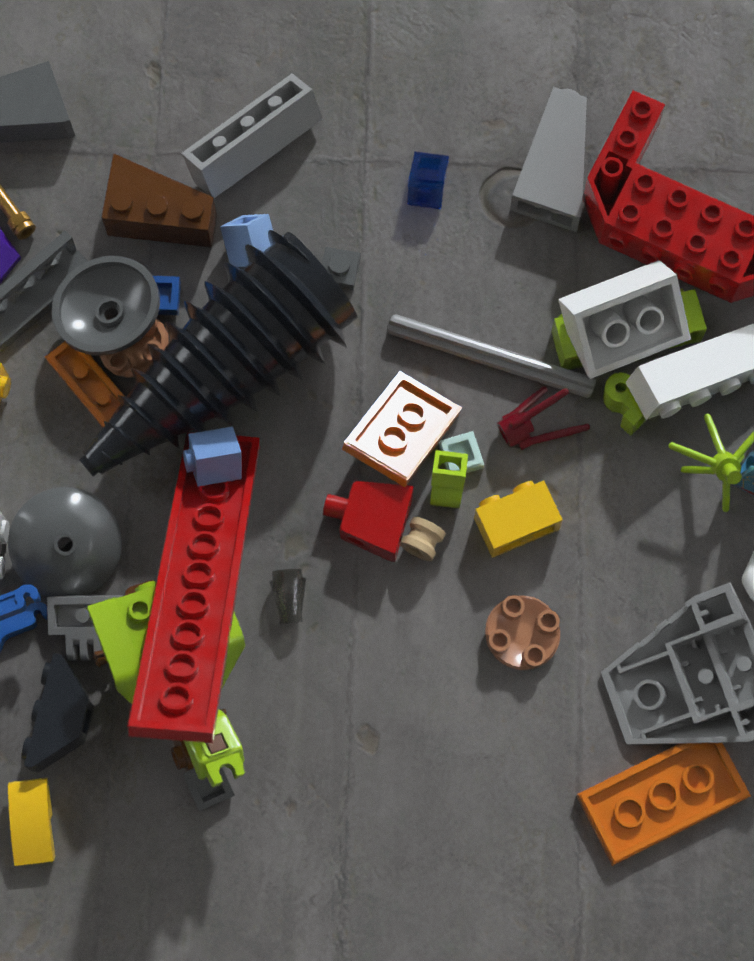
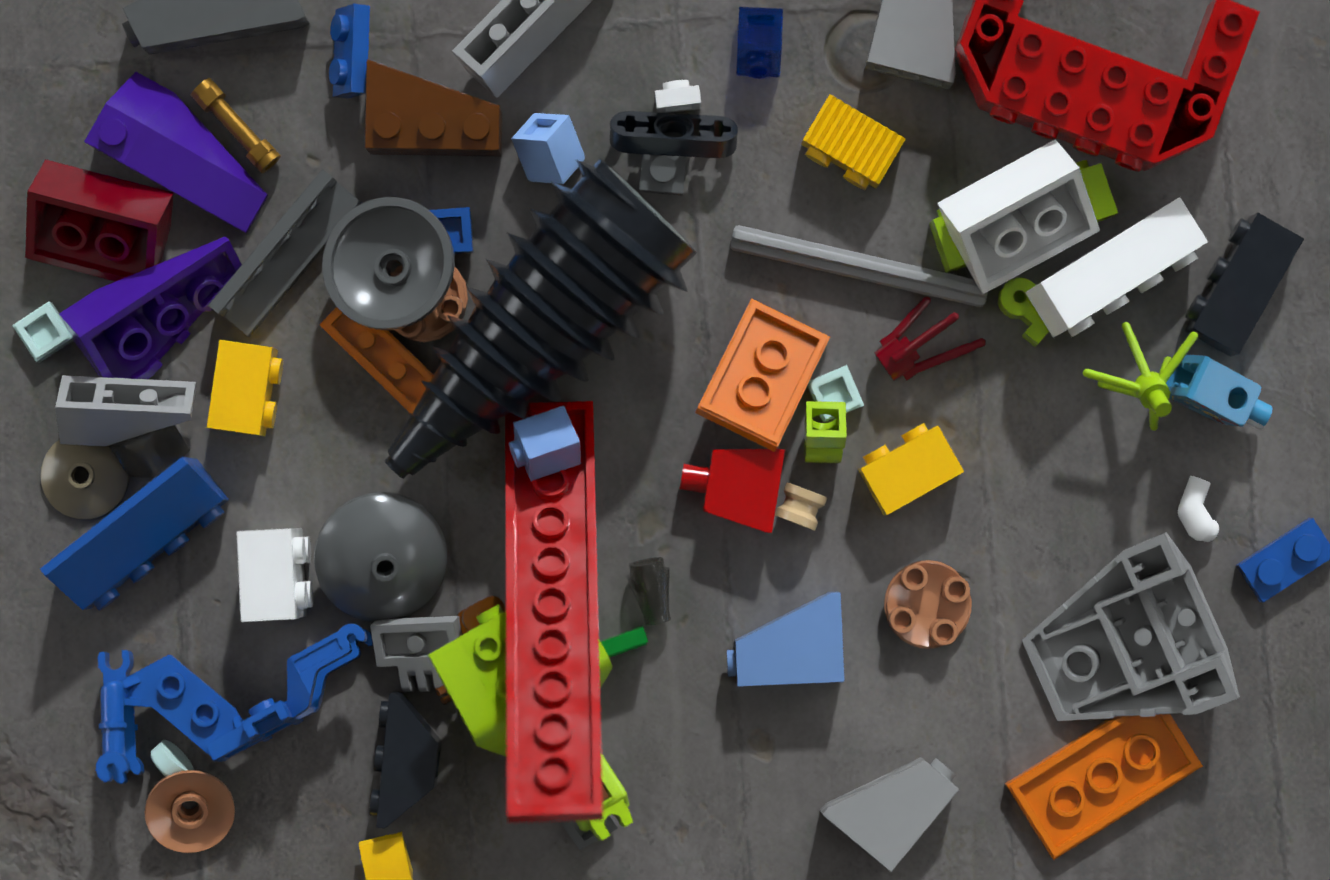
camera: 10 degrees left, 15 degrees up
(105, 141) = (351, 47): none -> blue plate
(261, 634) = (625, 641): none -> green tile
(351, 239) = (714, 137): none -> black beam
(357, 213) = (677, 97): none -> white plate
(403, 654) = (793, 648): none -> medium blue slope
(476, 802) = (893, 809): none -> light grey slope
(494, 259) = (852, 143): none -> yellow brick

